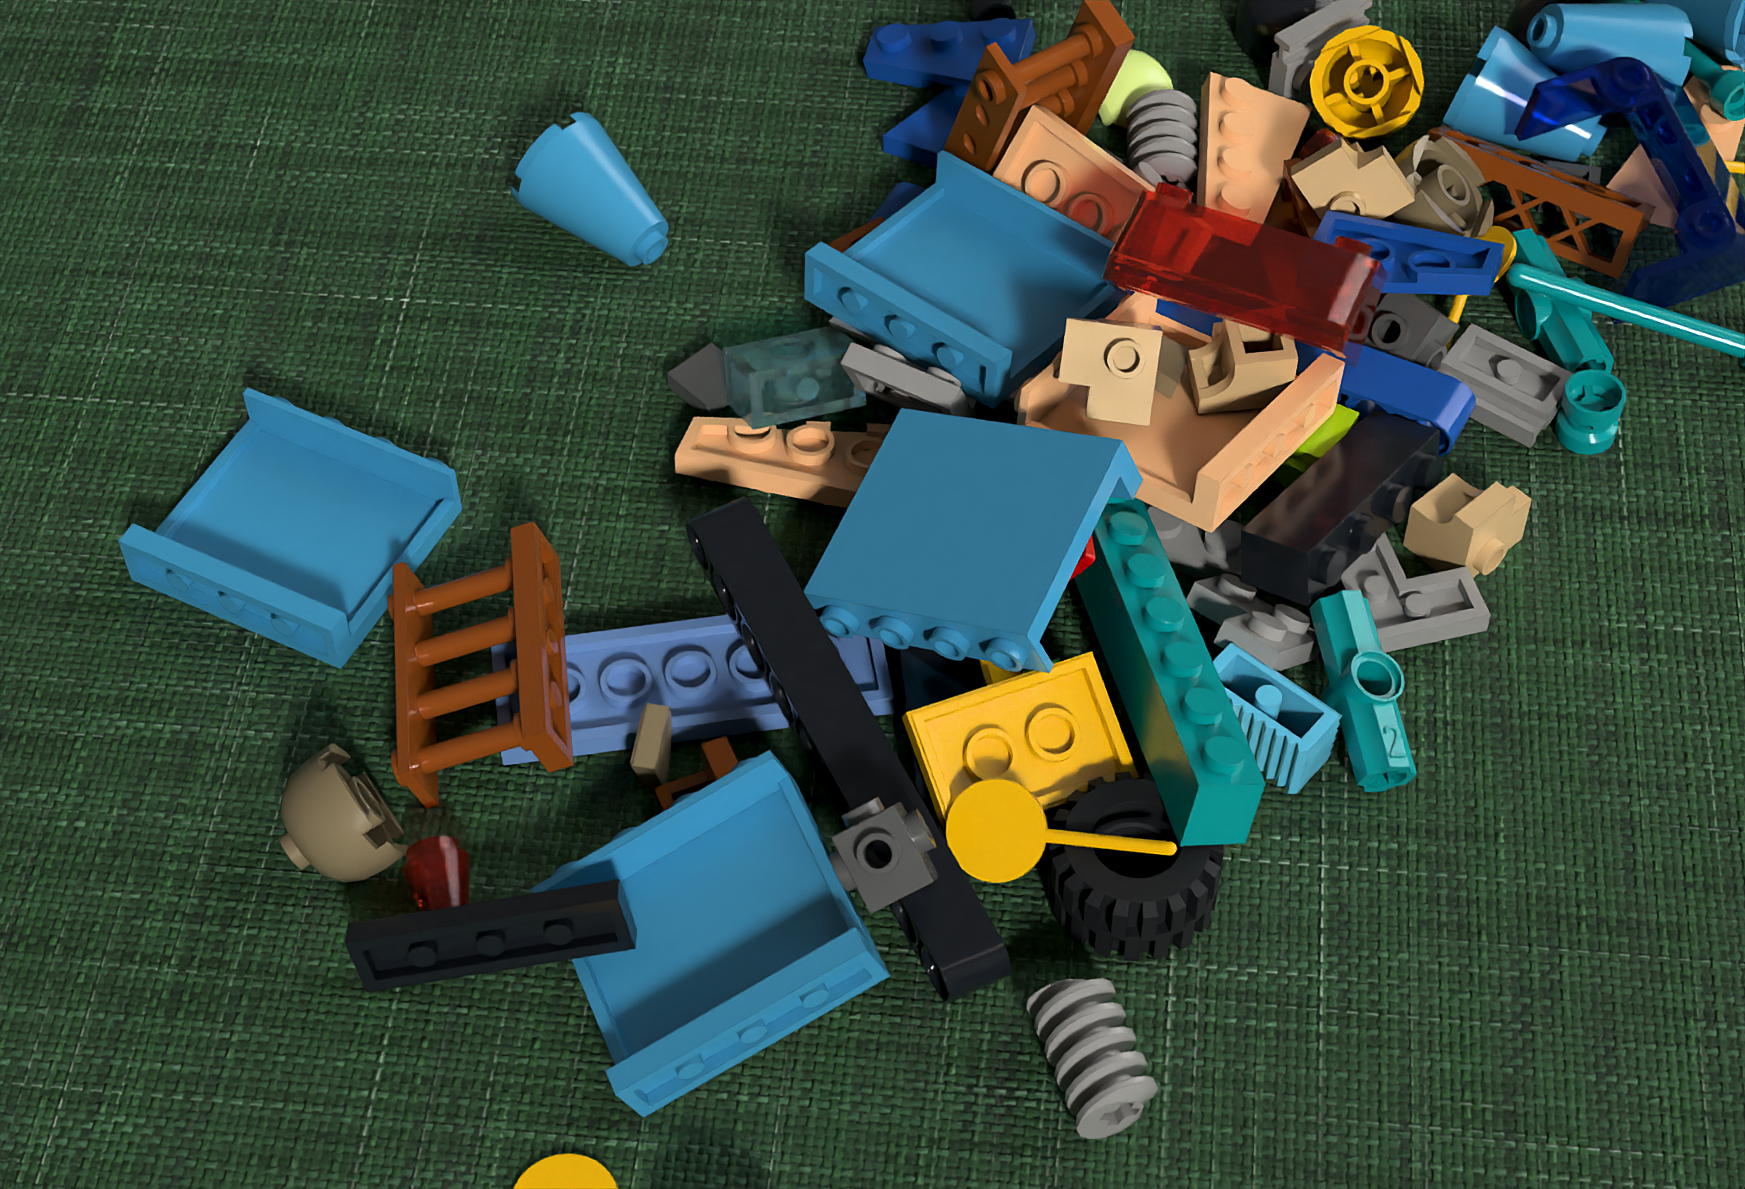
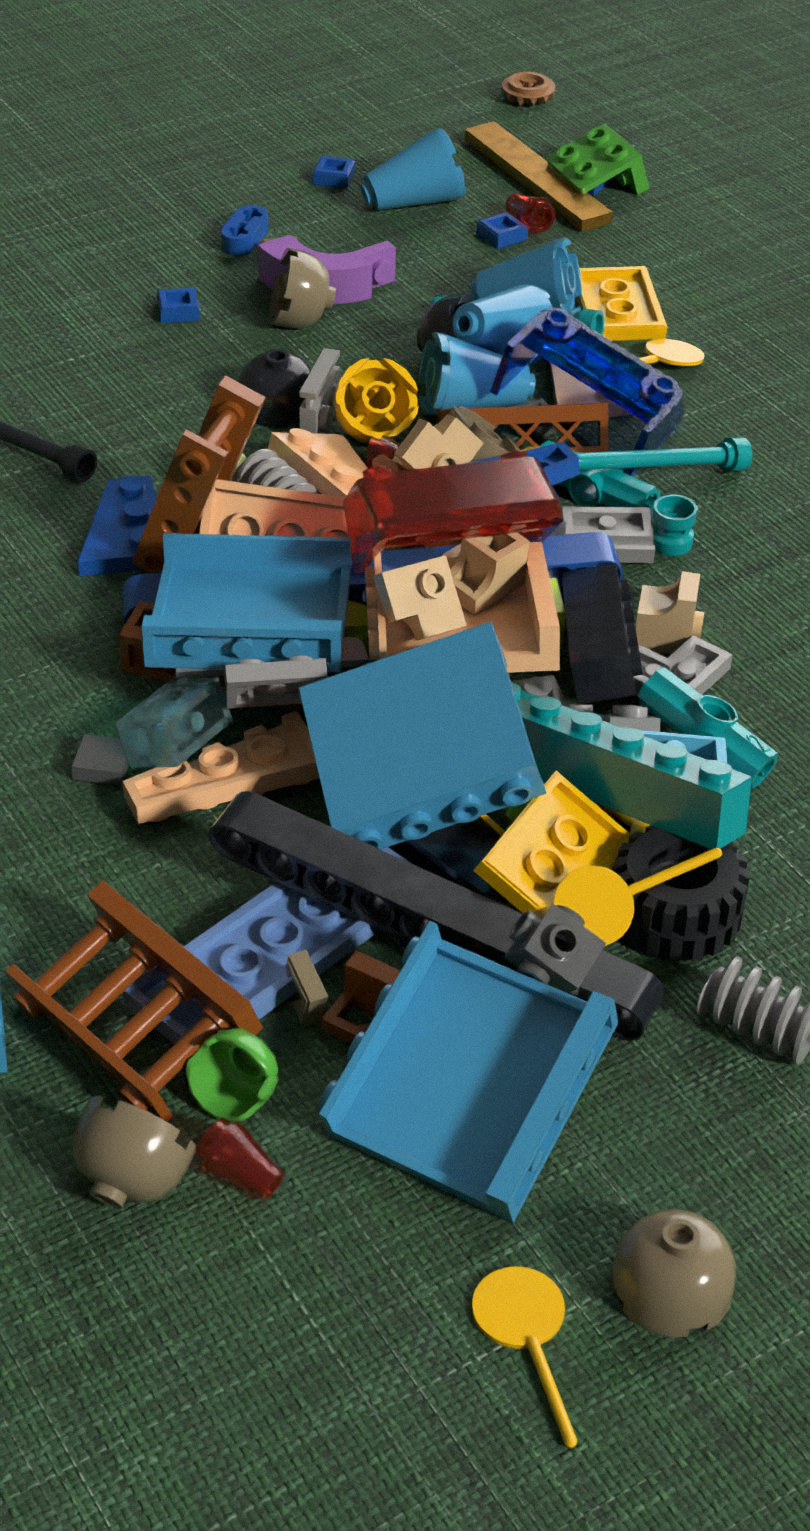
camera: 40 degrees left, 10 degrees down
(492, 936) = (318, 1161): black plate -> none
(505, 796) = (232, 1074): none -> bright green hair
(943, 51) = (92, 488): blue wing -> none

